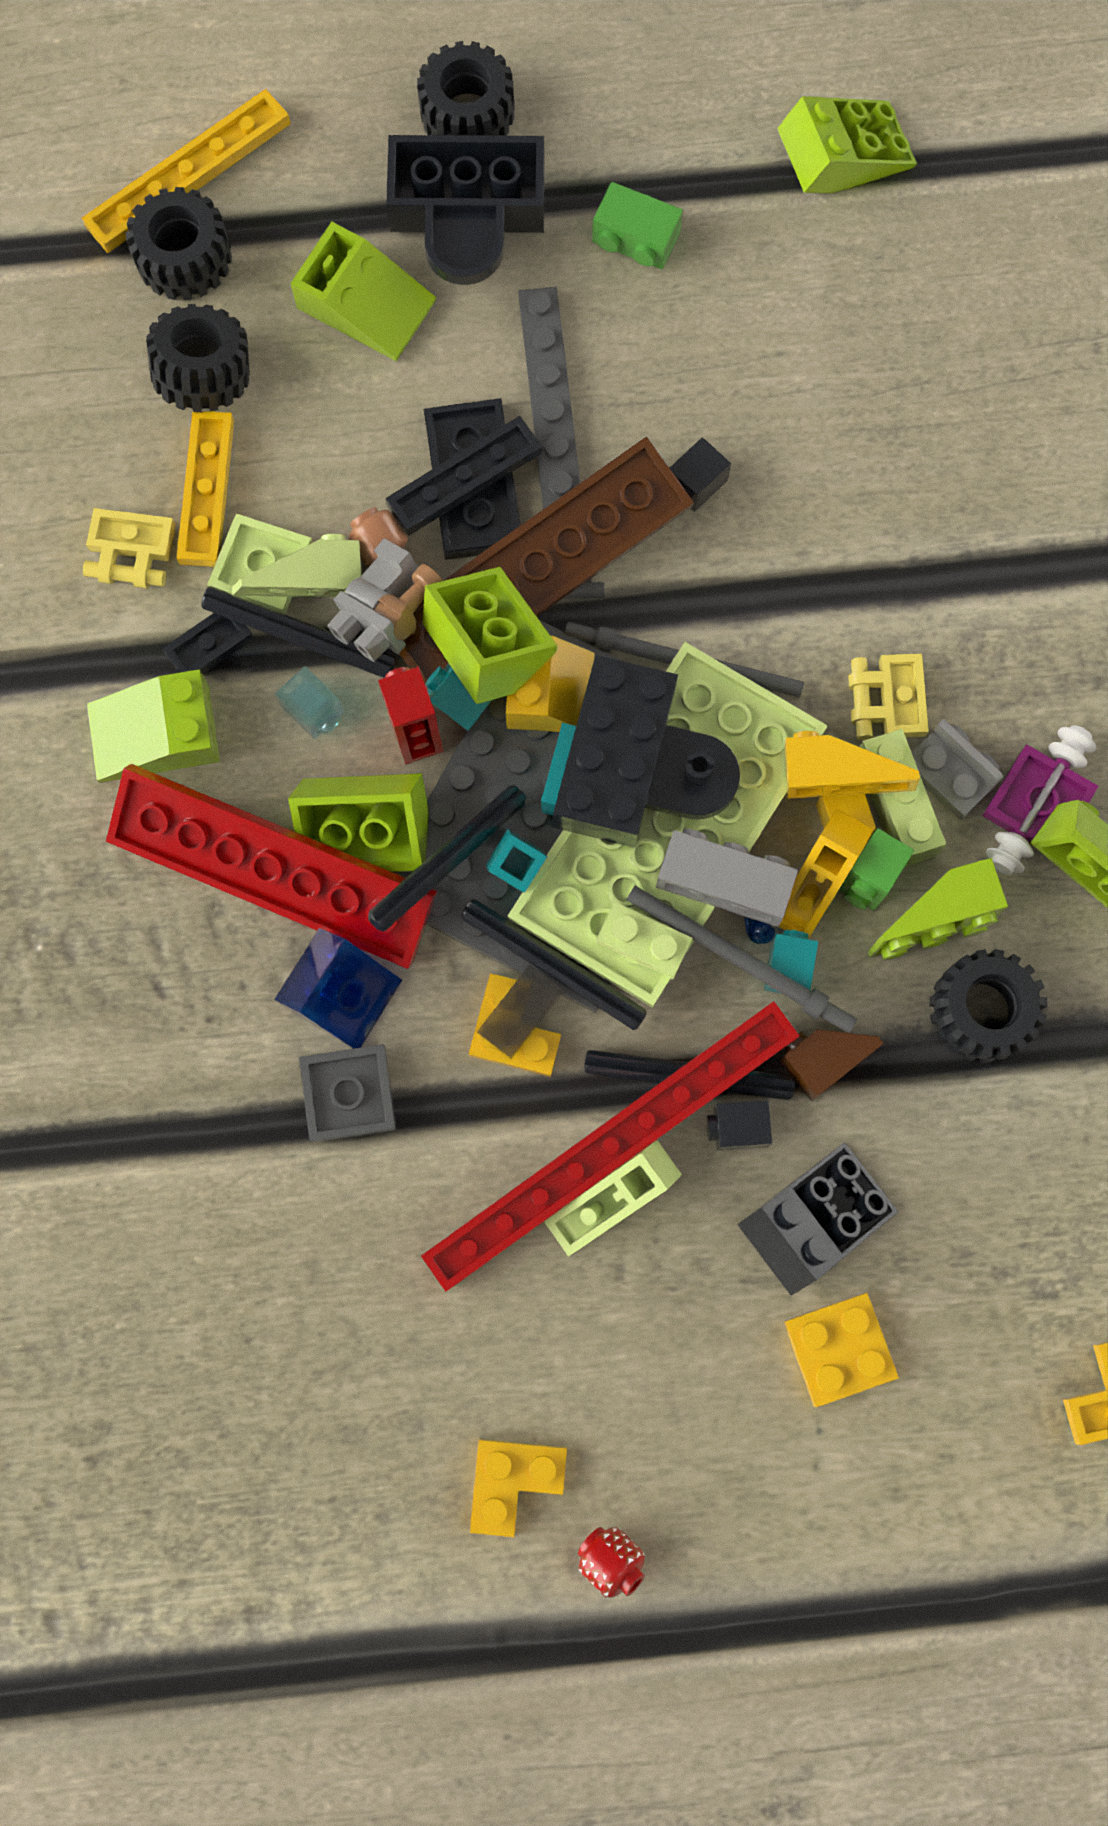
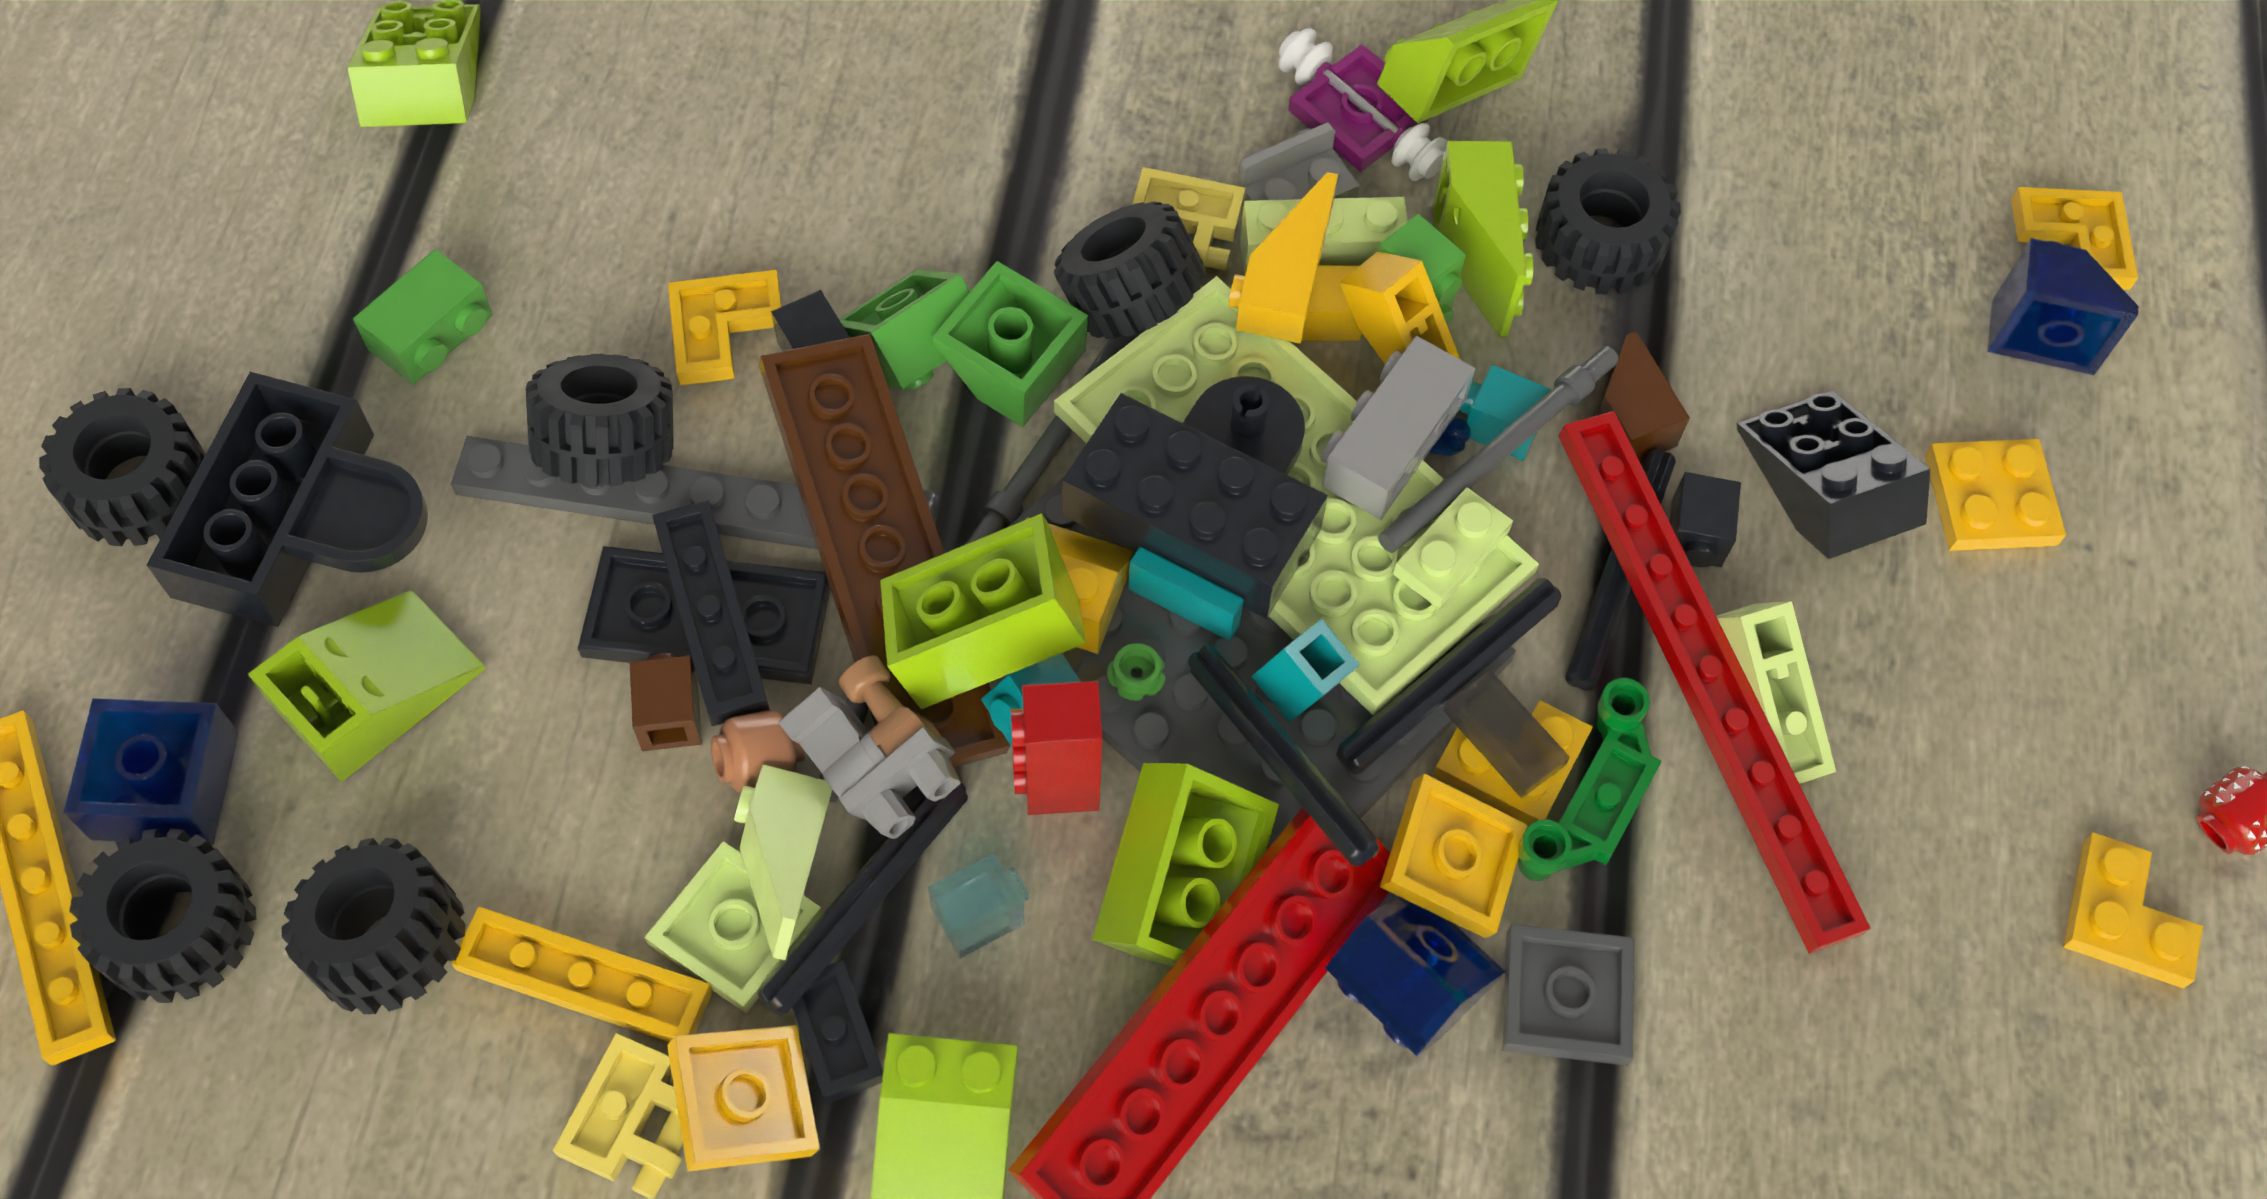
camera: 80 degrees left, 15 degrees down
(148, 602) = (742, 1097): none -> yellow plate
(264, 199) = (151, 769): none -> clear blue brick
(396, 467) = (665, 702): none -> reddish brown brick
(422, 996) = (1454, 856): none -> yellow plate
(492, 744) = (1136, 657): none -> bright green plate
(499, 1092) = (1606, 793): none -> green plate
(563, 374) = (600, 419): none -> black tyre
(696, 400) = (710, 310): none -> yellow plate
(729, 535) = (904, 322): none -> bright green slope
(730, 601) = (1012, 342): none -> bright green slope
(812, 663) = (1130, 269): none -> black tyre
(1016, 1373) = (2059, 309): none -> clear blue slope

